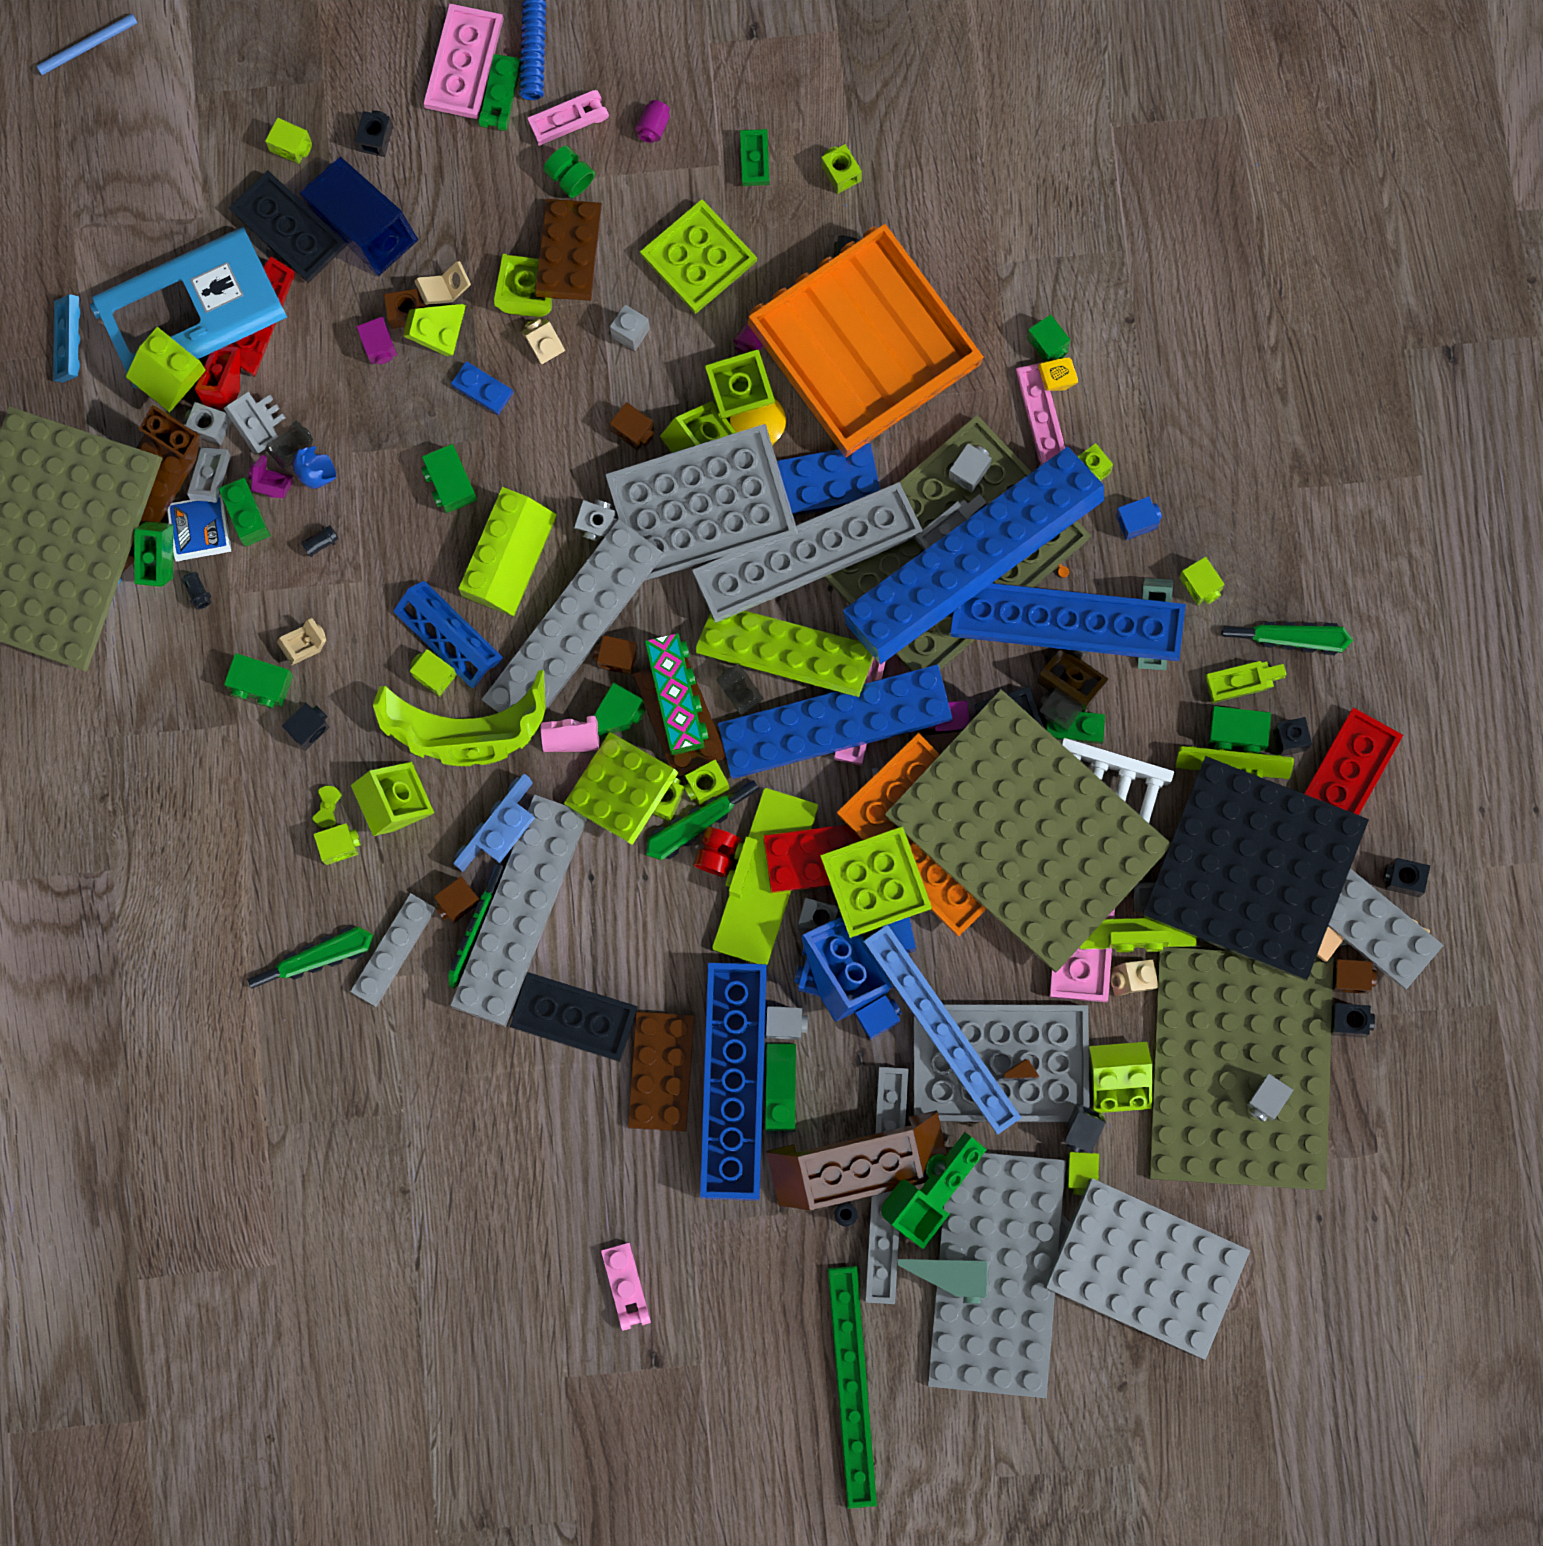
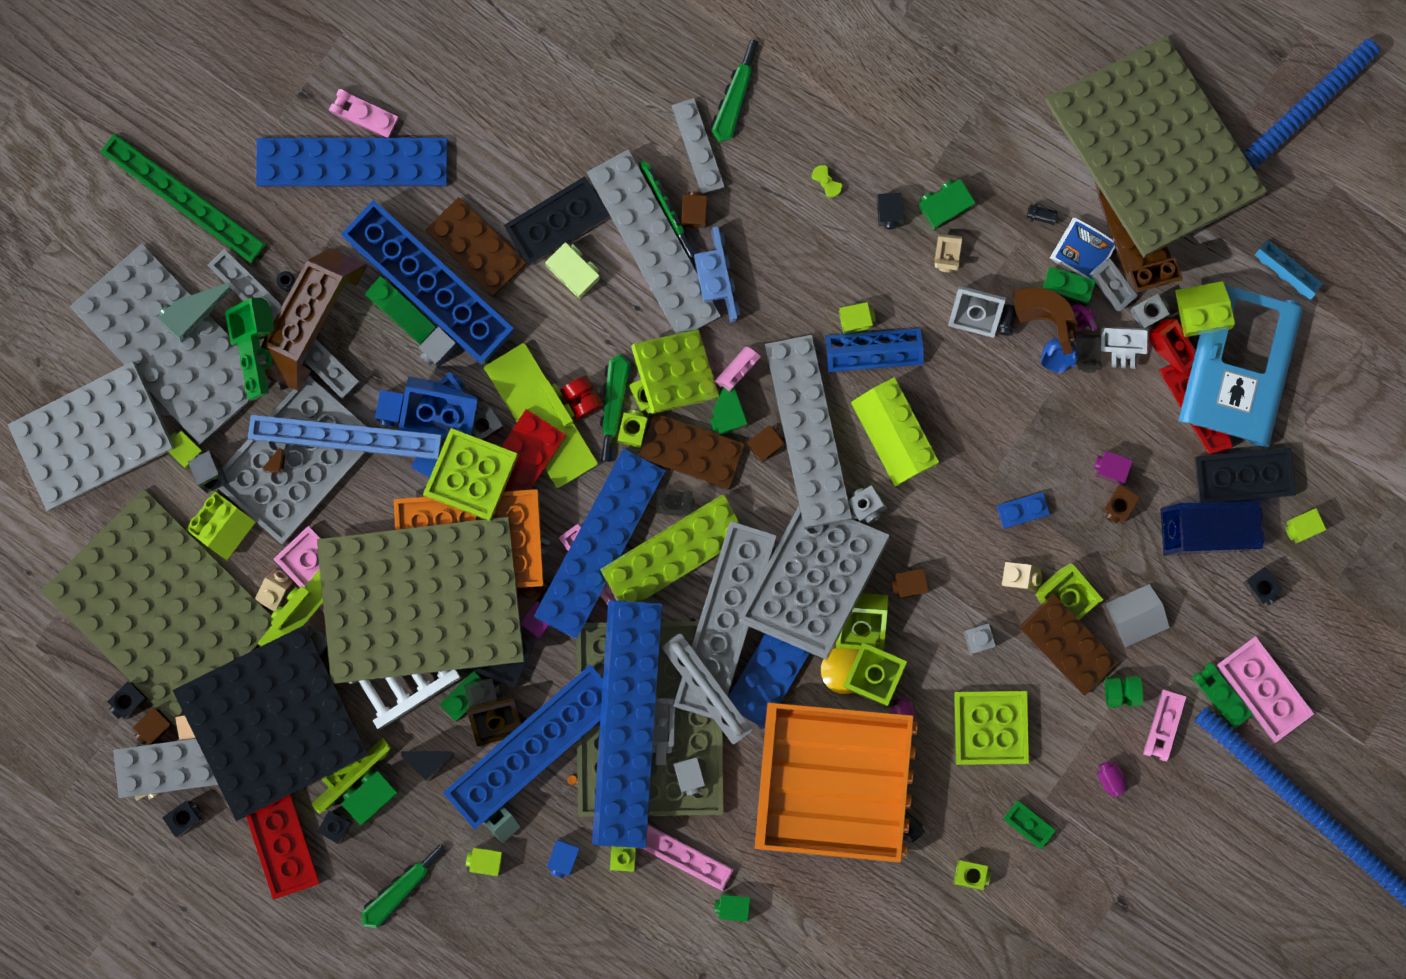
camera: 125 degrees right, 5 degrees up
(153, 554) = (1086, 204): green brick -> none
(275, 506) = (1047, 305): none -> reddish brown arch
(336, 572) = (976, 311): none -> light grey slope
(337, 843) = (795, 166): lime brick -> none
(391, 798) = (795, 225): lime slope -> none
(435, 327) = (1089, 513): lime wing -> none
(441, 288) = (1115, 540): tan bracket -> none
(449, 479) = (977, 435): green brick -> none
(462, 740) = (797, 300): lime windscreen -> none
(489, 217) = (1138, 615): none -> light grey slope
(606, 962) = (573, 270): none -> yellowish green brick
(675, 694) = (705, 456): brick -> none
(681, 1257) = (351, 162): none -> blue plate
(867, 568) = (708, 687): none -> light grey piece
(1058, 374) = (704, 892): yellow slope -> none
(1162, 702) = (427, 763): none -> black slope
(1242, 680) = (398, 829): lime hinge -> none
(1269, 1098) = (123, 602): light grey brick -> none

